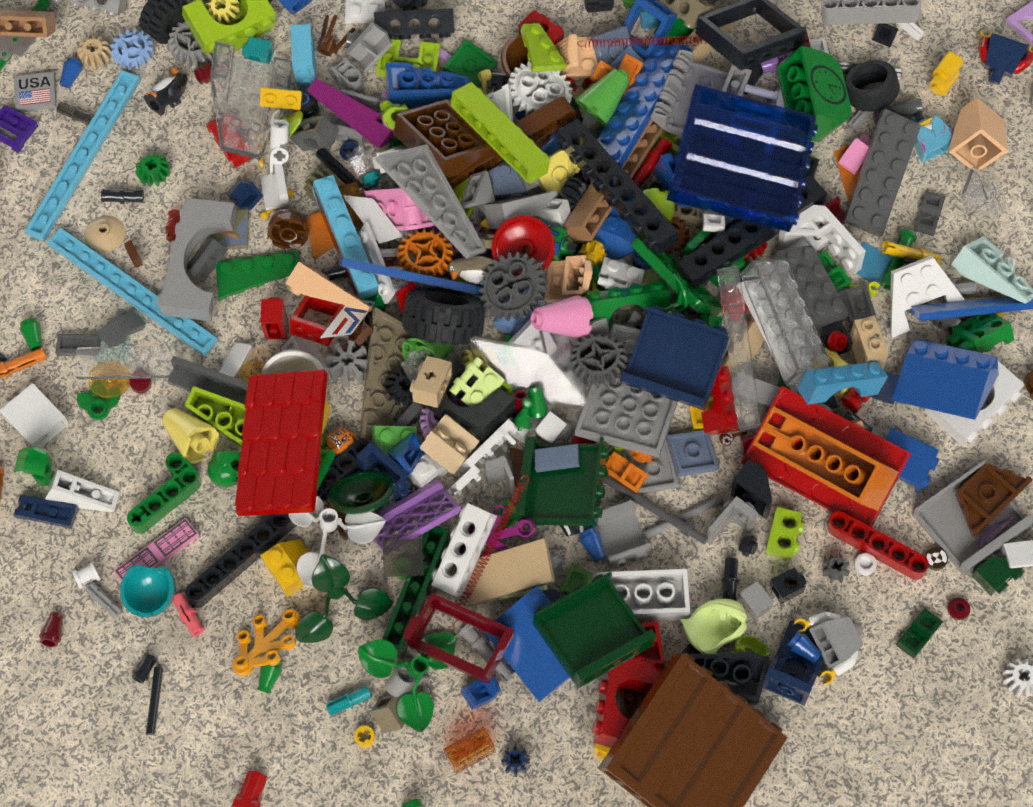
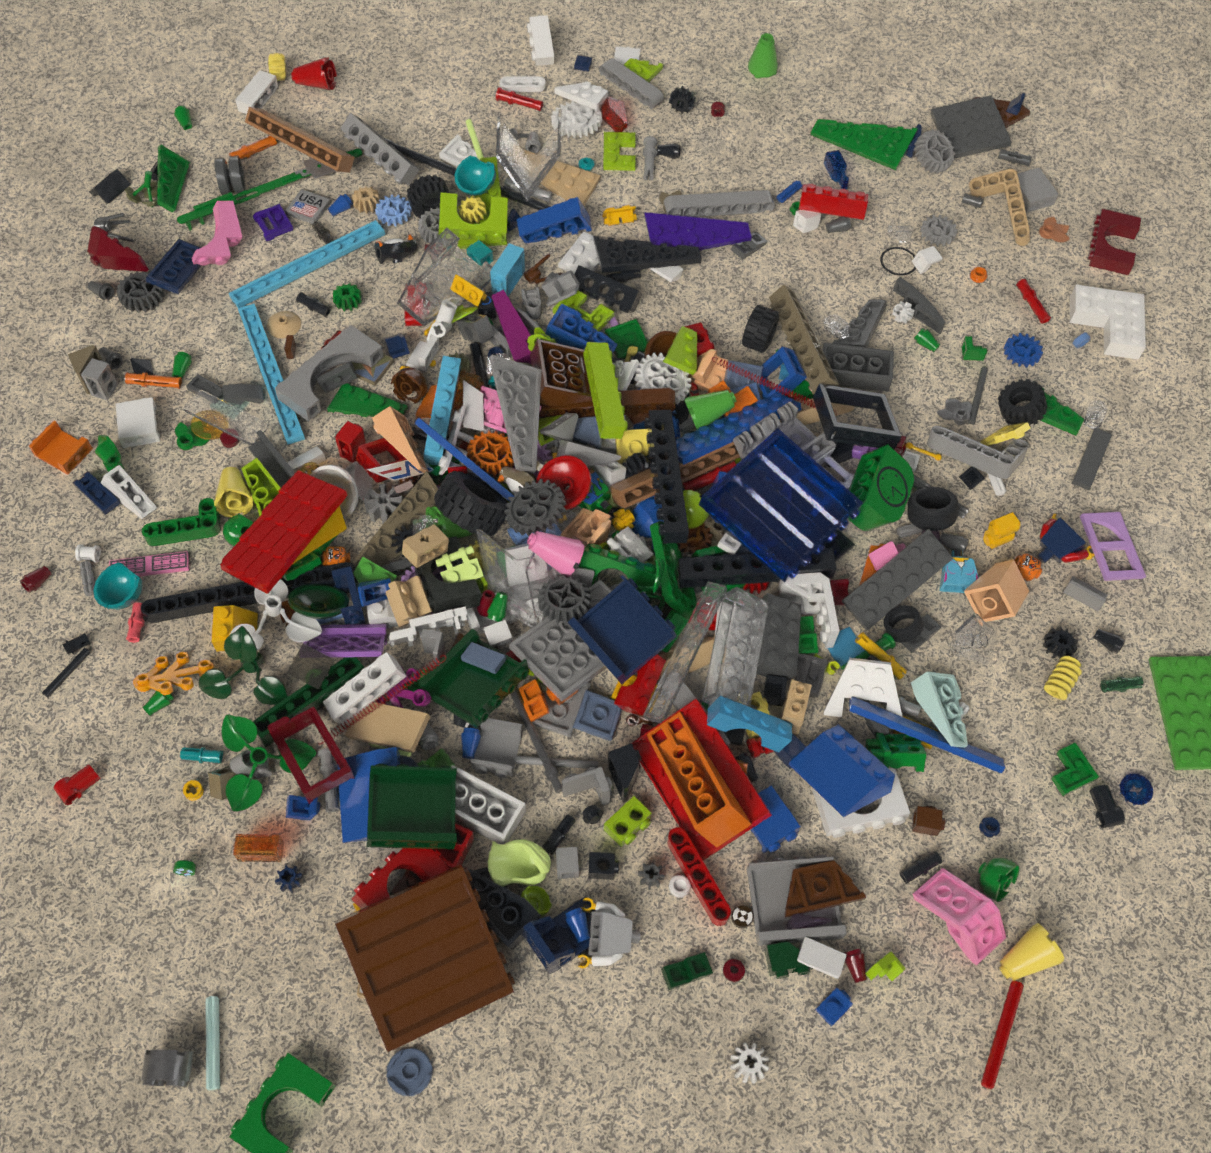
camera: 25 degrees right, 5 degrees down
(522, 420) = (478, 614): green piece -> none
(837, 341) = (772, 695): red plate -> none
(841, 30) = (937, 456): none -> yellow hinge
(905, 201) = (900, 613): none -> black tyre
(989, 94) = (1028, 566): none -> orange head

